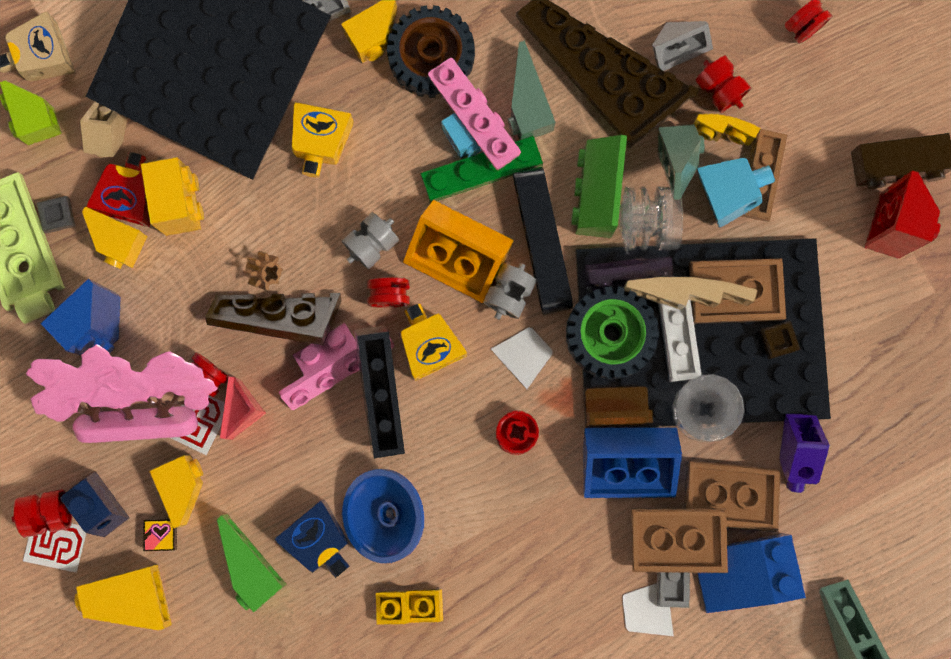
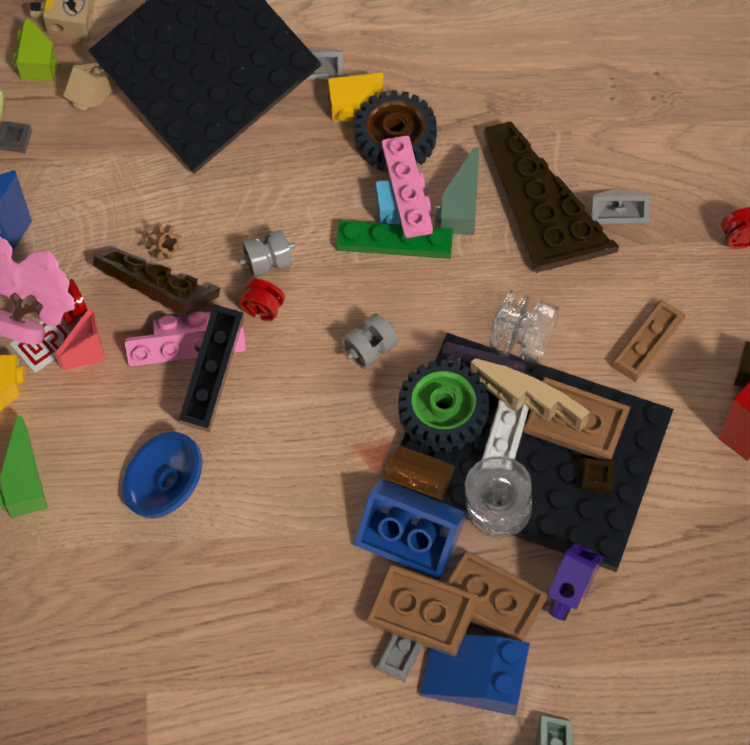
camera: 25 degrees right, 20 degrees down
(114, 239) = (53, 171): yellow slope -> none
(122, 192) = (80, 140): red torso -> none
(172, 196) = (117, 153): yellow brick -> none
(316, 540) = (93, 475): dark blue torso -> none
(319, 136) = (266, 158): yellow torso -> none
(409, 606) = (146, 570): yellow slope -> none
(429, 343) = (276, 357): yellow torso -> none
(457, 250) = (338, 289): light orange slope -> none
(517, 432) = (318, 461): red wheel -> none
(524, 355) = (358, 404): white sticker -> none
(542, 240) = (419, 312): black beam -> none
(599, 186) = (488, 289): bright green slope -> none
(644, 615) = (360, 671): white sticker -> none
(679, 155) = (575, 287): sand green slope -> none
(714, 125) = (623, 281): yellow slope -> none
(719, 78) = (642, 249): red wheel -> none
(733, 188) = (612, 334): medium azure torso -> none

